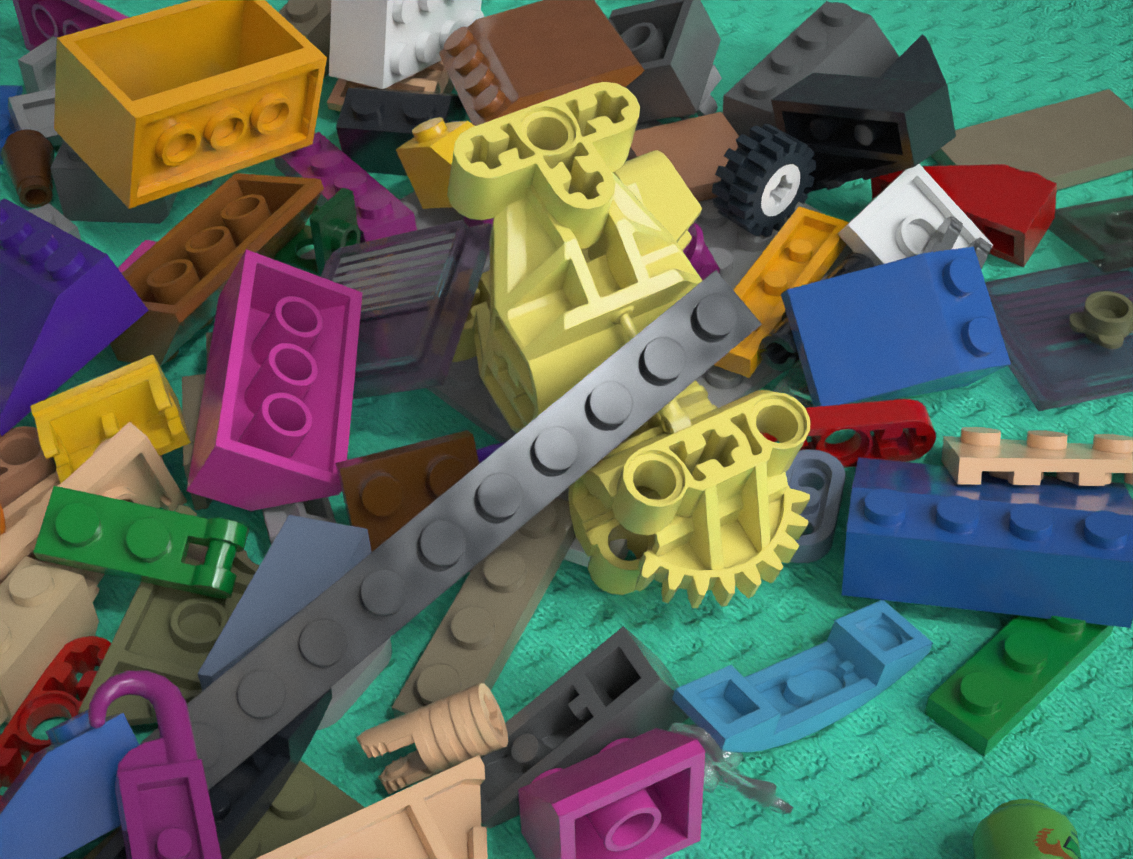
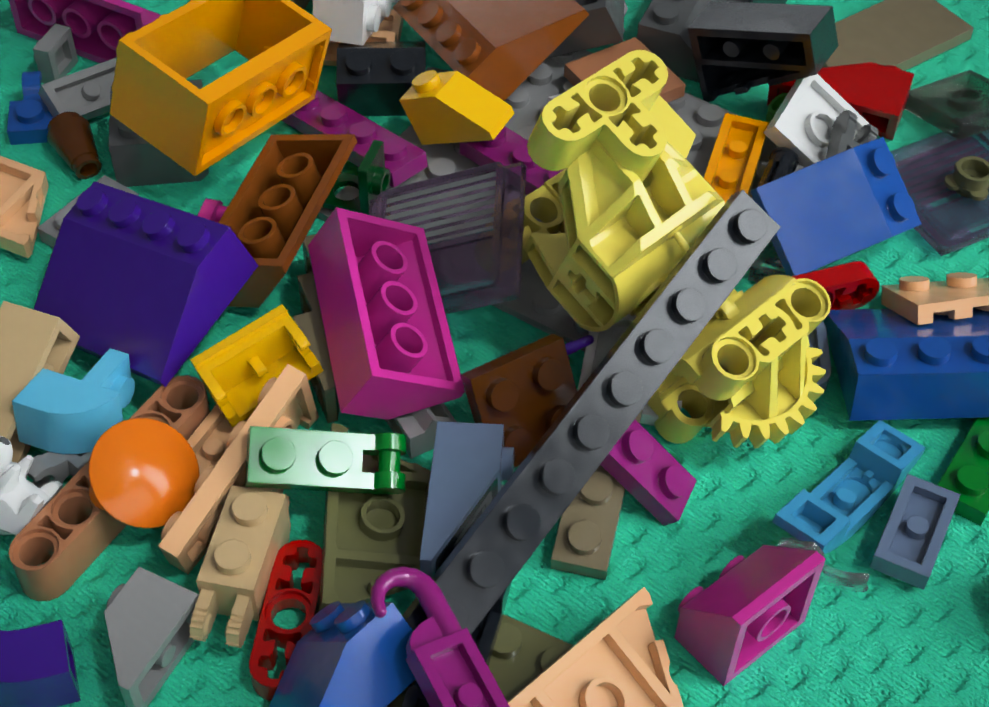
camera: 15 degrees left, 5 degrees up
(443, 733) = (598, 579): light nougat hinge -> none
(538, 607) = (650, 474): none -> magenta plate
(603, 698) = (697, 549): dark grey slope -> none
(763, 180) = (699, 91): black wheel -> none
(881, 747) = (915, 531): none -> sand blue plate

